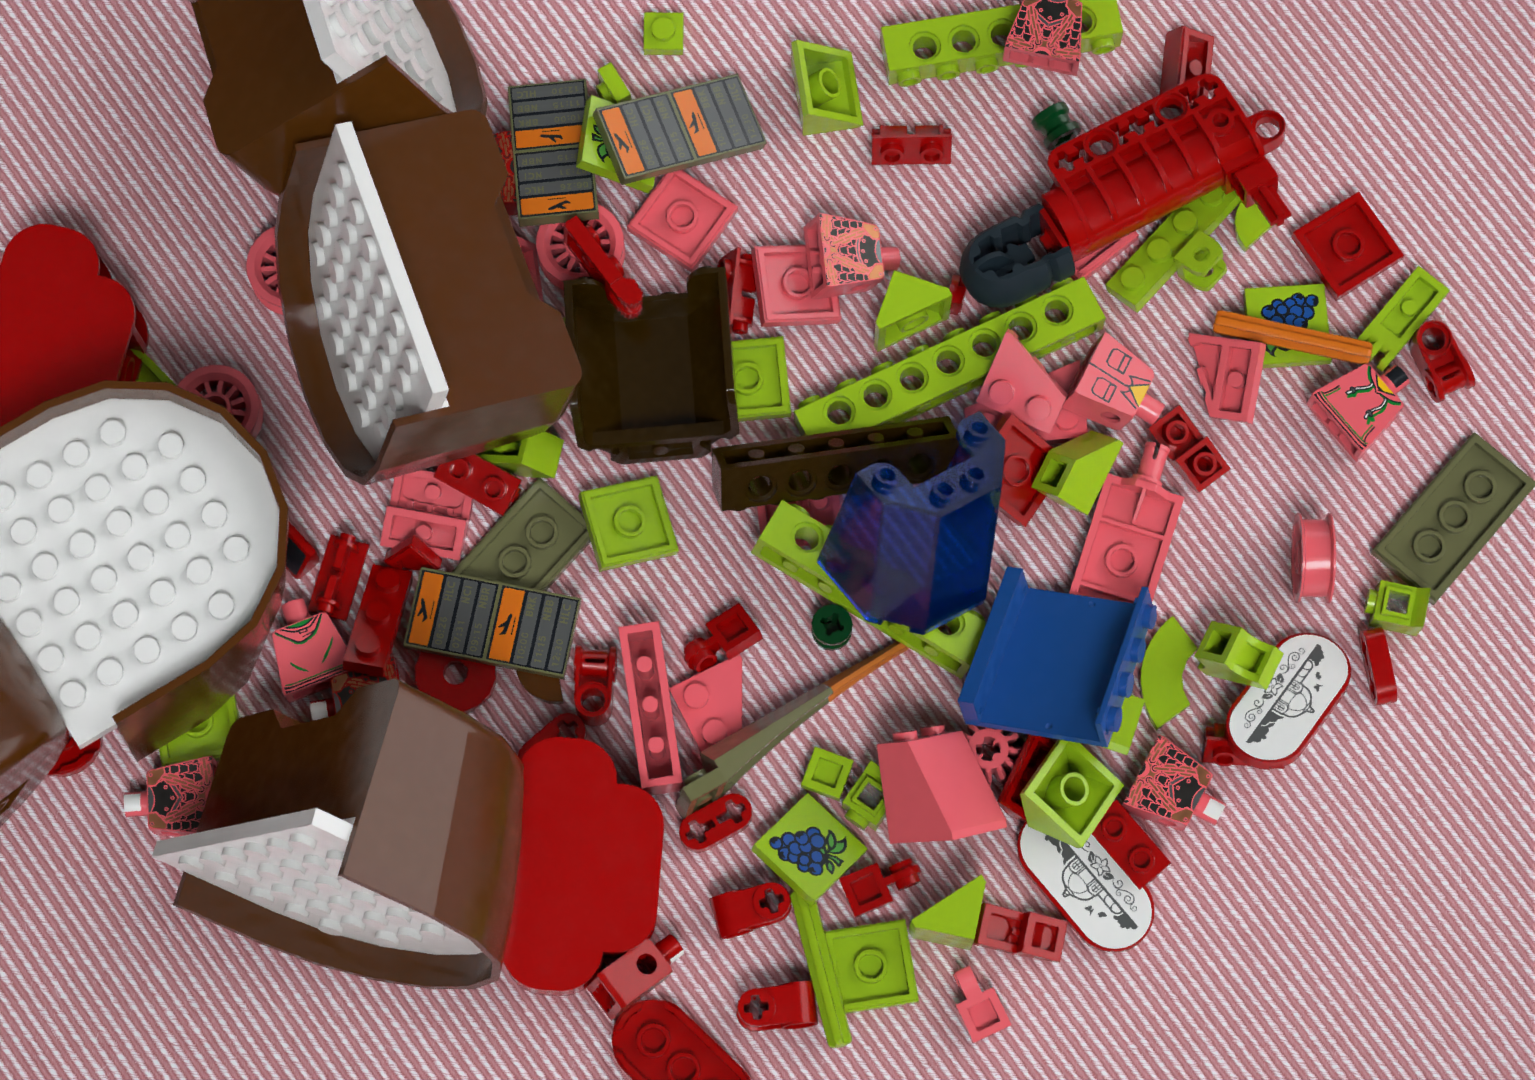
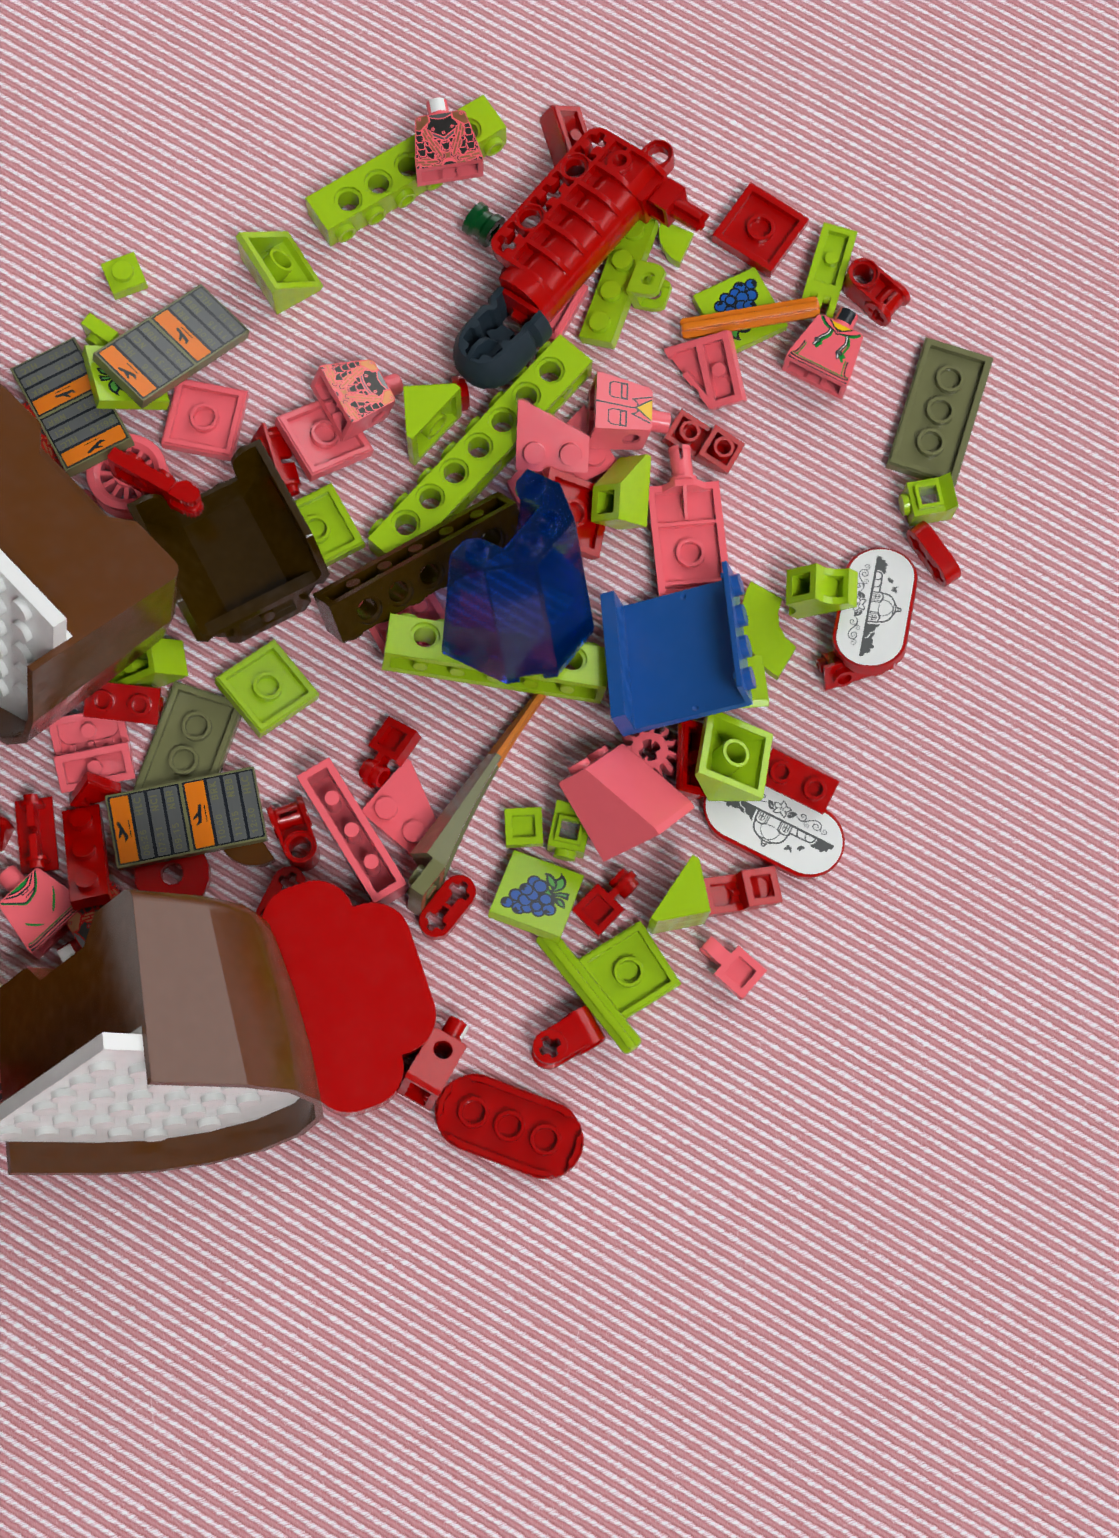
camera: 30 degrees left, 0 degrees up
(741, 910) = (501, 970): red piece -> none
(829, 635) = (475, 713): dark green wheel -> none
(927, 146) = (380, 284): red hinge -> none
(1172, 789) = (812, 720): torso -> none
(1313, 558) = (845, 486): coral wheel -> none

